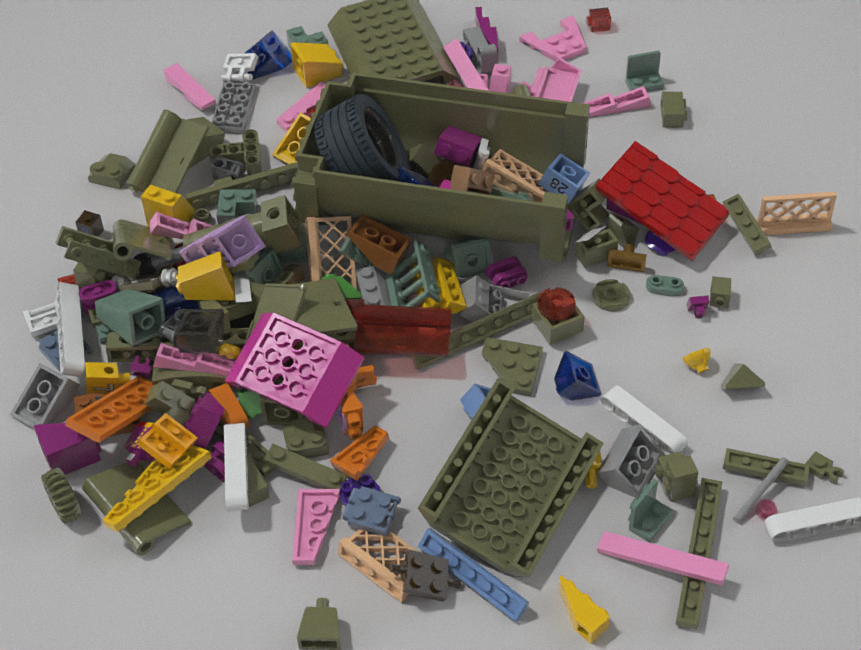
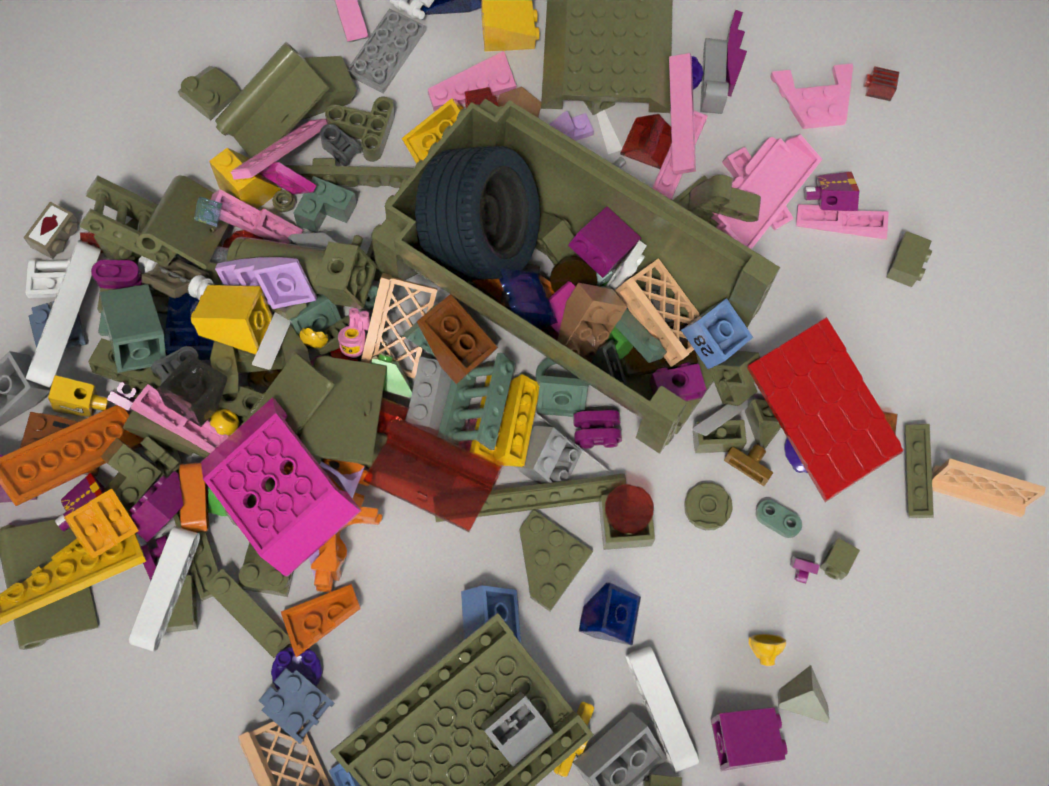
camera: 15 degrees right, 20 degrees up
(31, 288) = (51, 230): none -> brick
(90, 223) = (150, 166): dark brown brick -> none
(154, 226) = (208, 211): none -> clear light blue plate
(188, 176) = (278, 149): none -> bright pink tile
(202, 193) = (287, 179): none -> dark pink plate
(268, 278) = (313, 338): none -> yellow plate
(301, 270) = (353, 337): none -> bright pink piece
(313, 518) = (227, 686): bright pink wing -> none
(500, 78) = (715, 137): bright pink slope -> none
(547, 454) = (516, 728): none -> light grey slope
(601, 86) = (835, 192): none -> magenta torso
(644, 71) = (898, 191): sand green bracket -> none
(713, 415) = (748, 738): none -> magenta slope

